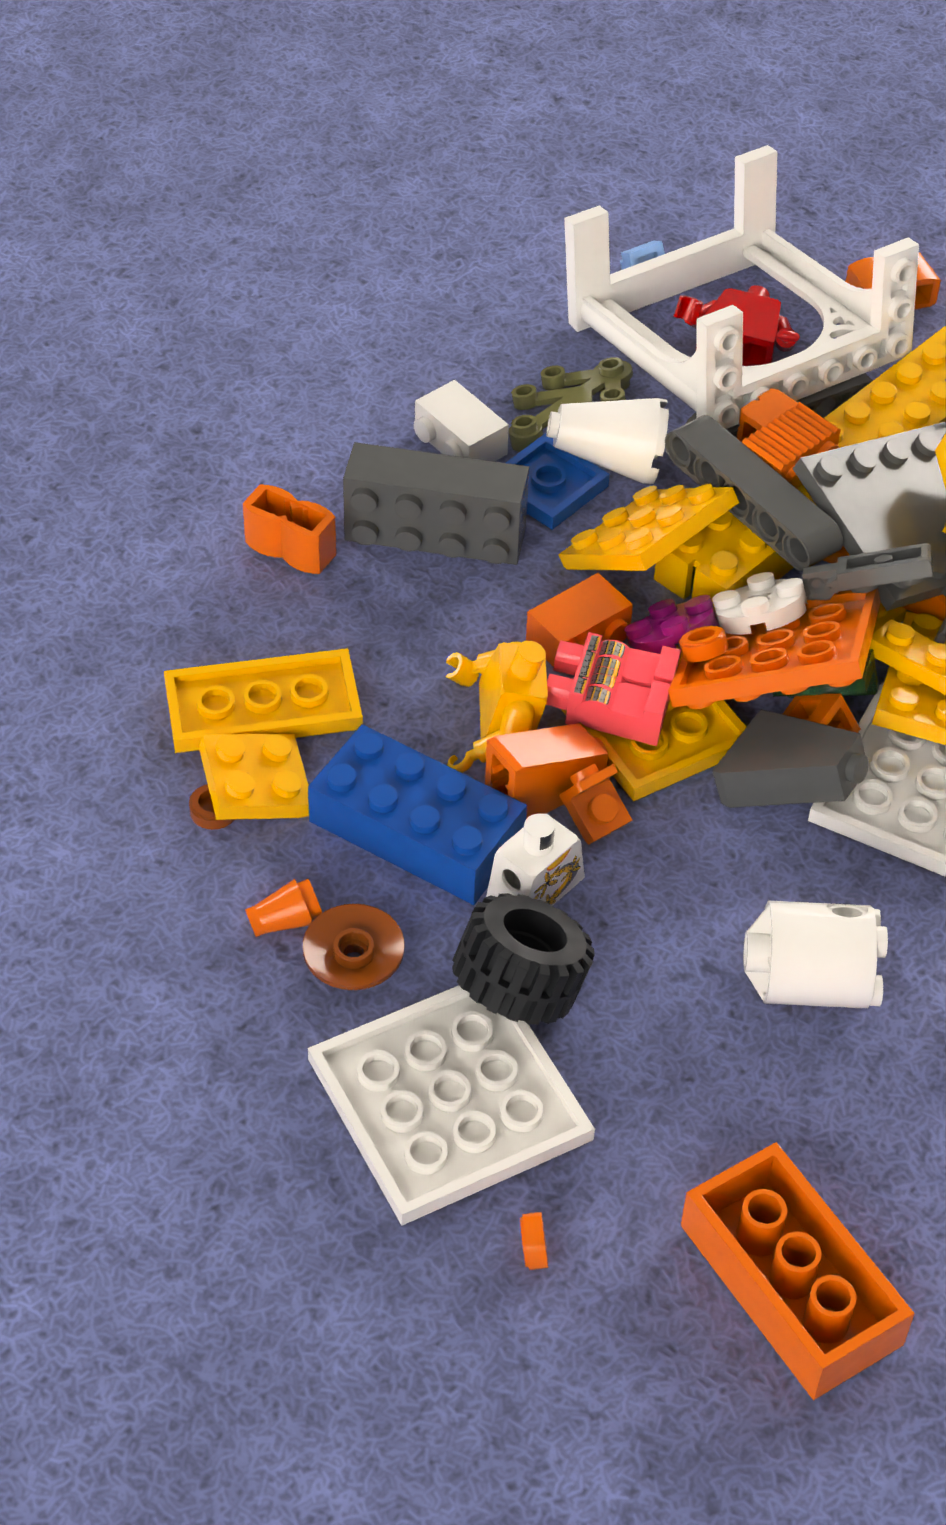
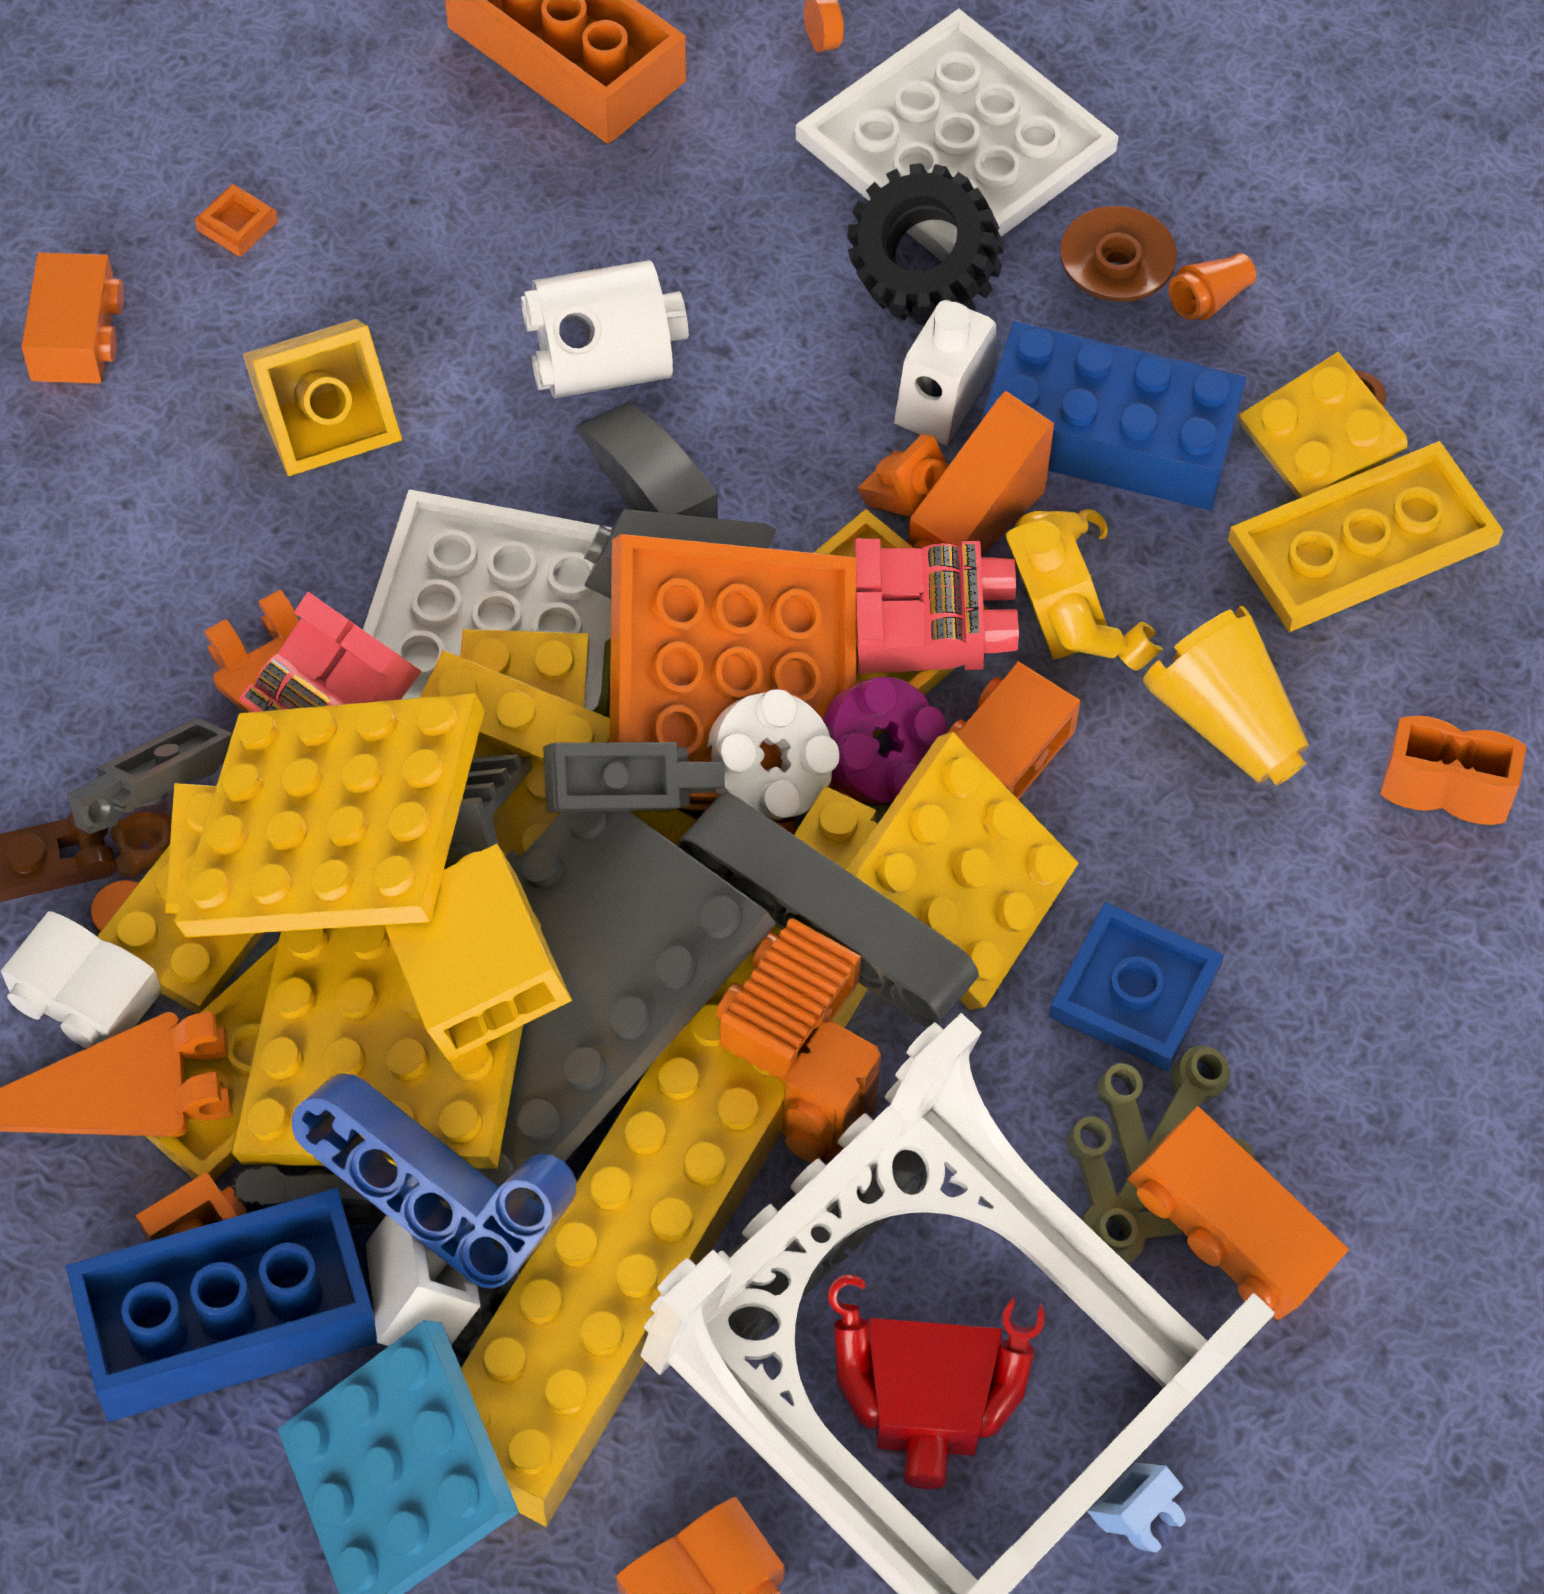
camera: 165 degrees right, 10 degrees up
(422, 610) = (1233, 697): none -> yellow cone
(435, 503) = (1272, 843): dark grey brick -> none
(460, 424) = (1299, 1043): white brick -> none
(541, 349) = (1236, 1214): none -> orange brick
(613, 434) = (1065, 1032): white cone -> none
(703, 643) = (830, 662): orange tile -> none
(793, 845) = (647, 464): none -> dark grey slope

